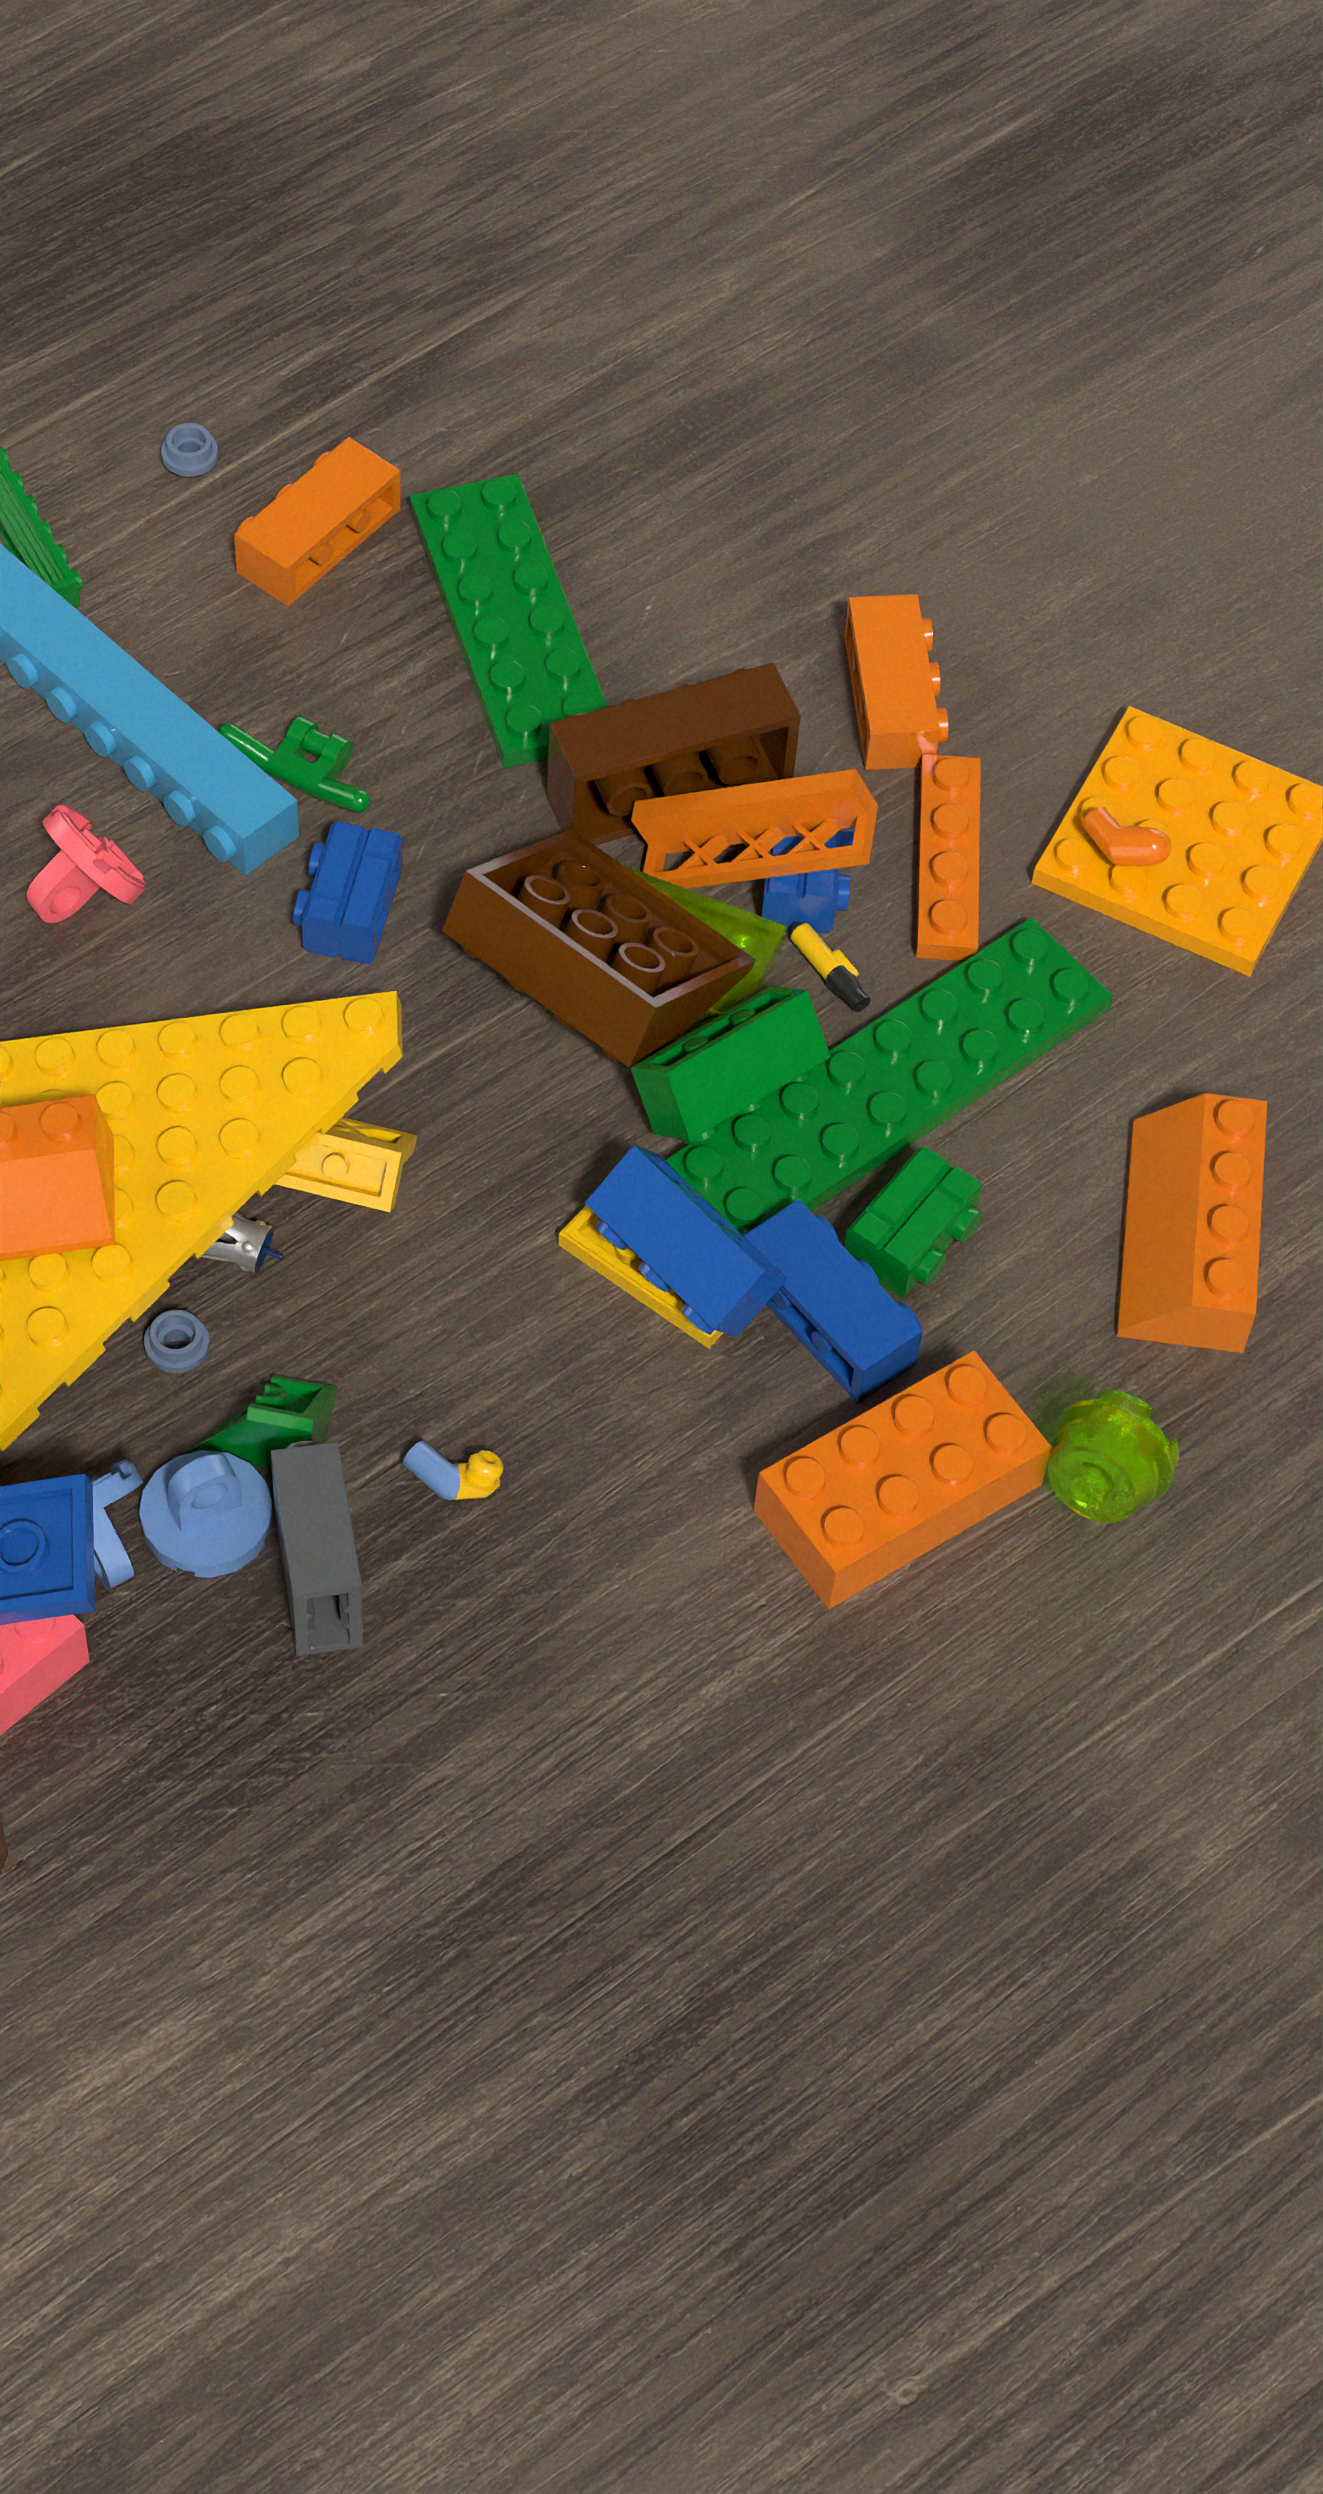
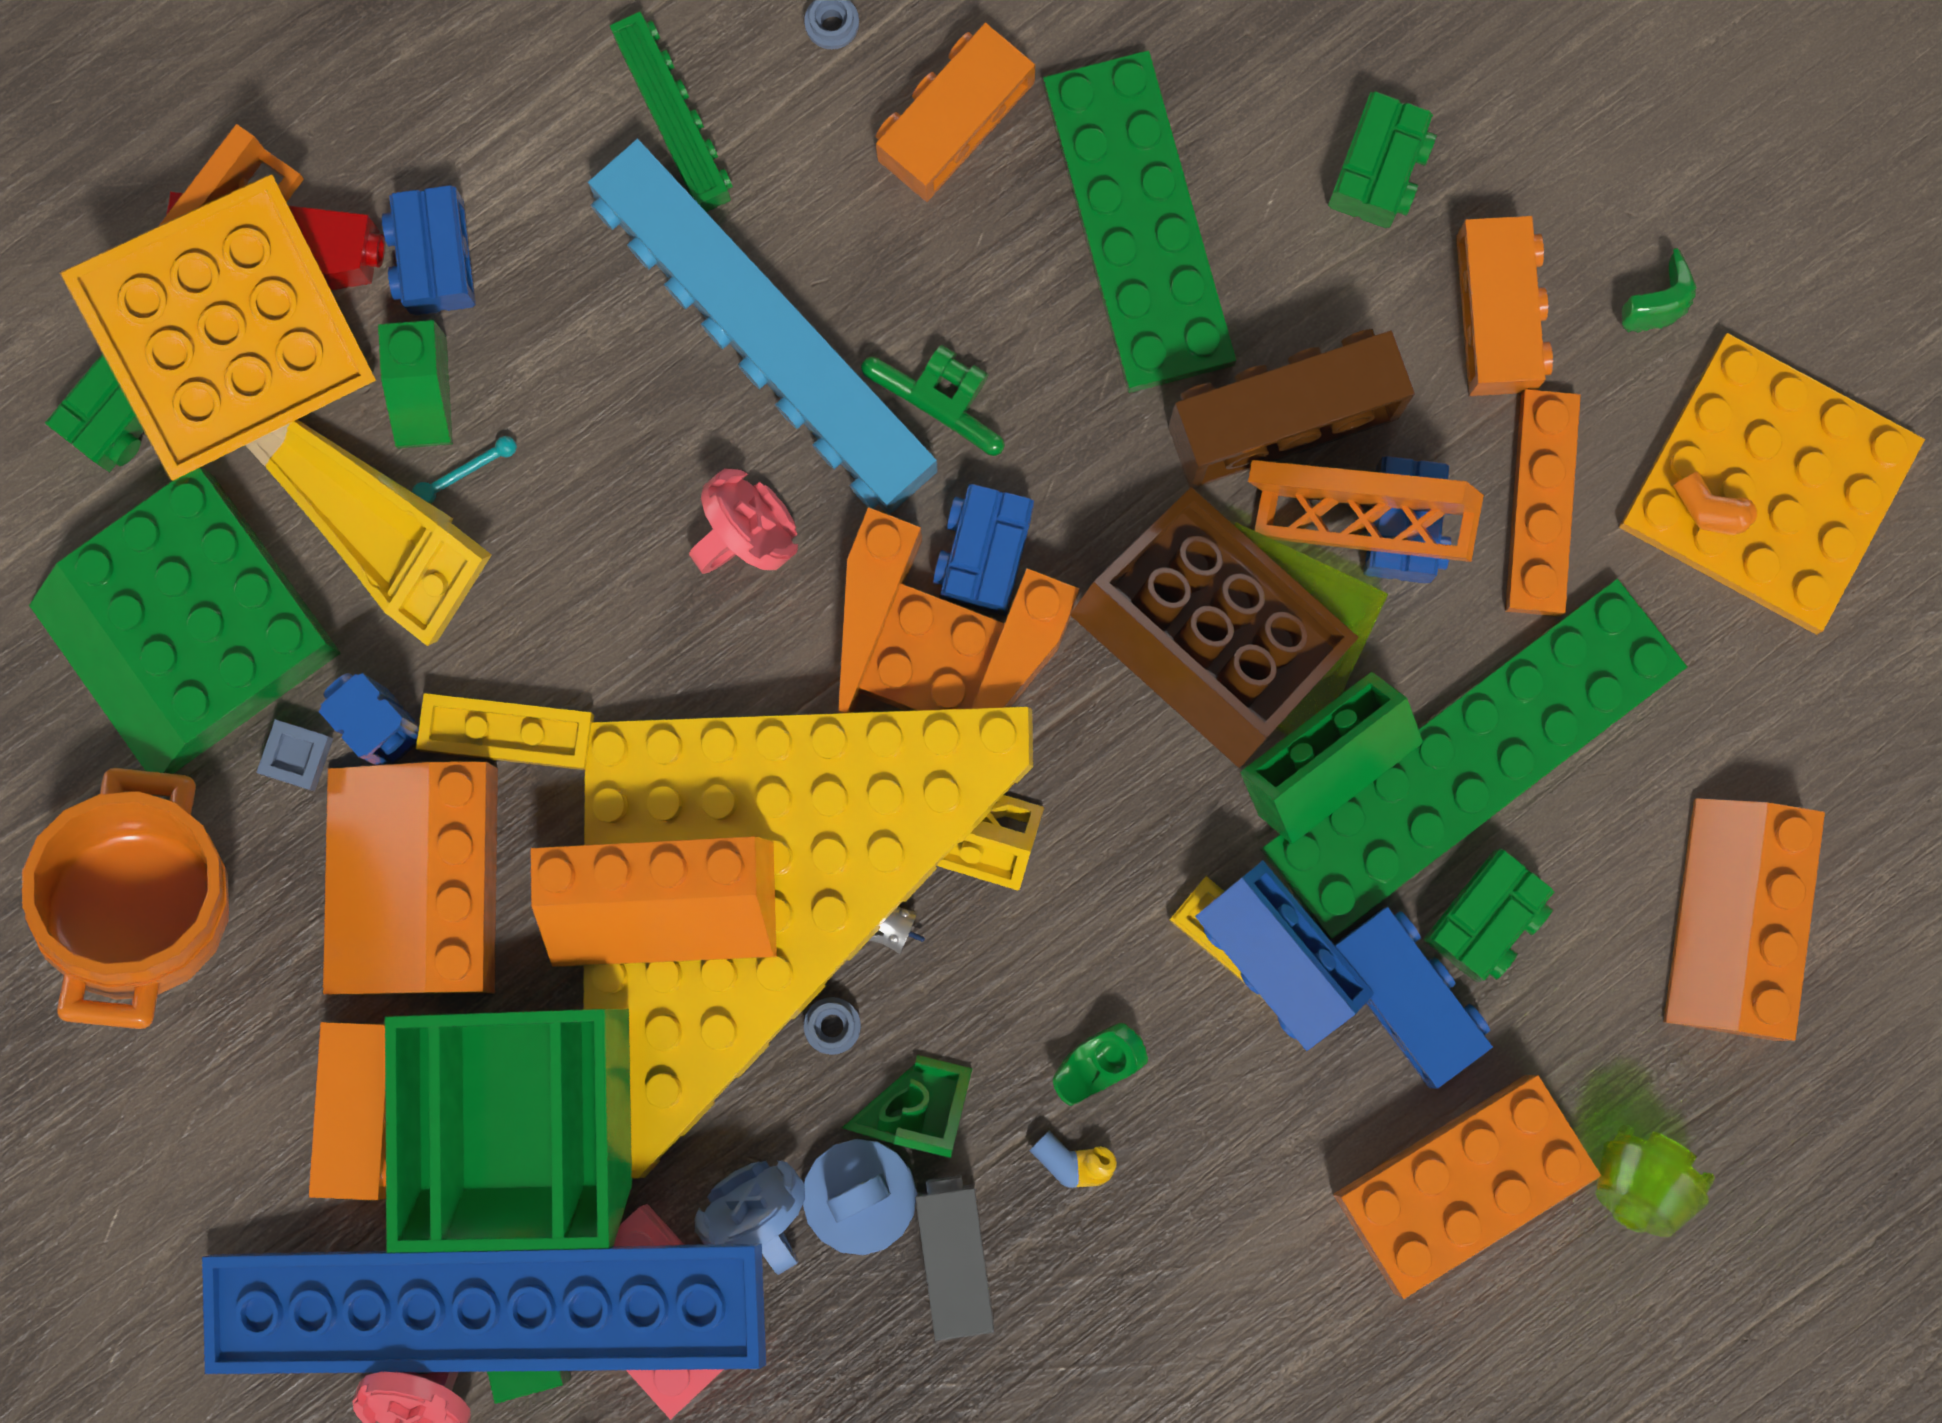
camera: 10 degrees right, 25 degrees up
(261, 962) = (931, 651): none -> orange wedge
(486, 1368) = (1099, 1063): none -> green hair
(761, 561) = (1381, 160): none -> green brick
(832, 966) = (1429, 627): piece -> none
(1057, 682) = (1662, 307): none -> green hair

